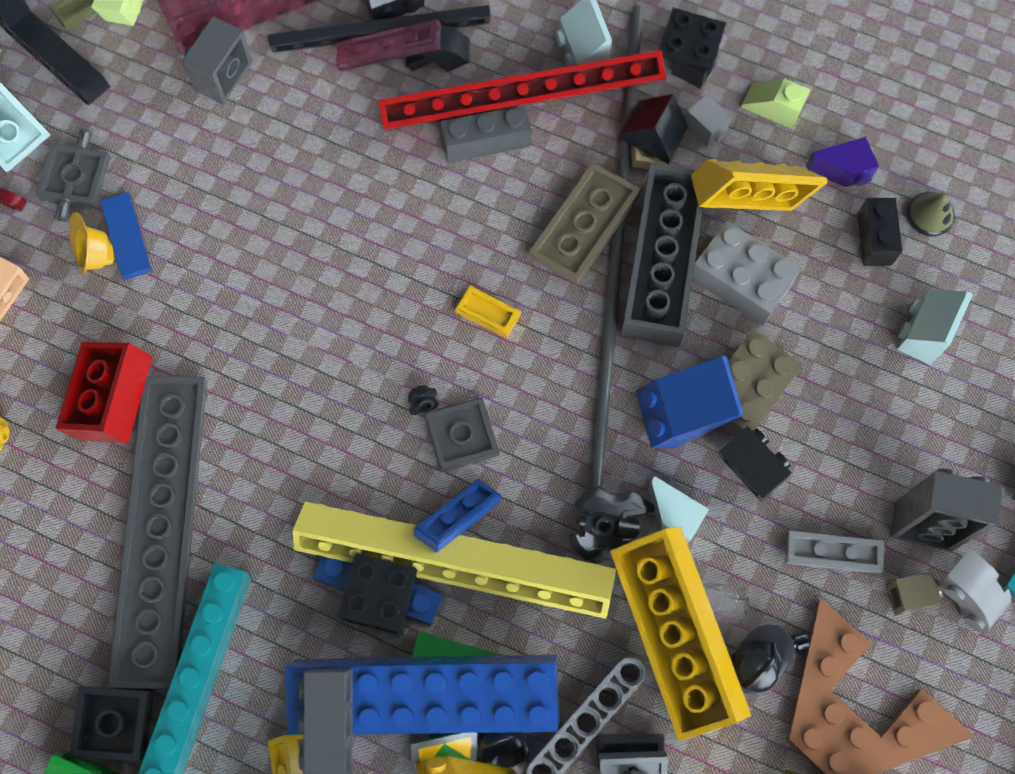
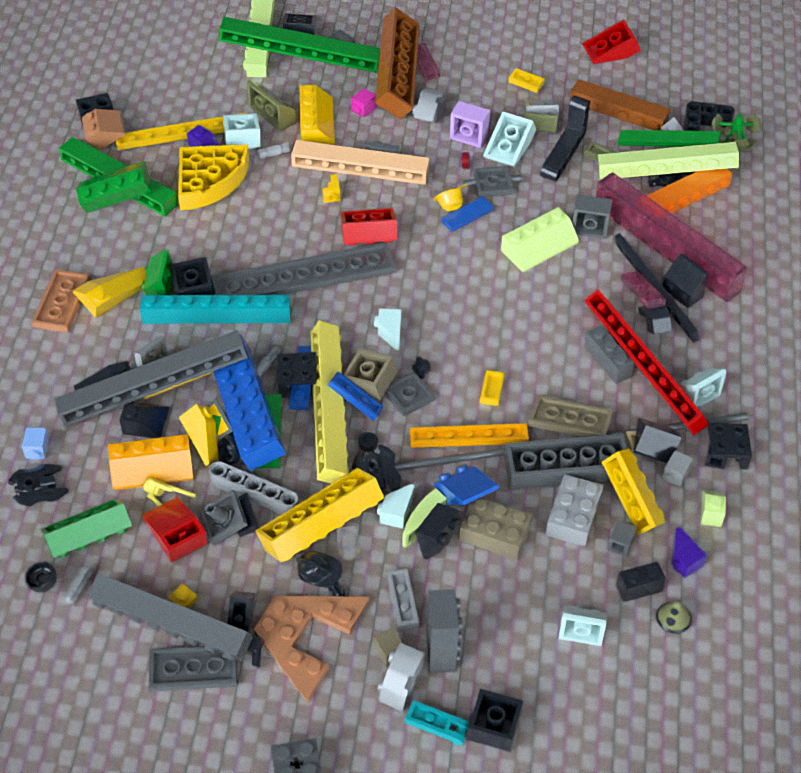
camera: 75 degrees right, 20 degrees down
(228, 149) = (539, 239): none -> yellowish green slope
(325, 422) = (389, 326): none -> light aqua slope
(330, 635) = (267, 362): none -> light grey axle
(420, 480) = (371, 372): none -> dark tan brick
(535, 521) = (368, 441): none -> black tile
(570, 374) = (468, 435): none -> light orange plate
(704, 481) = (419, 514): none -> yellowish green slope
(802, 229) = (622, 538): none -> dark grey brick

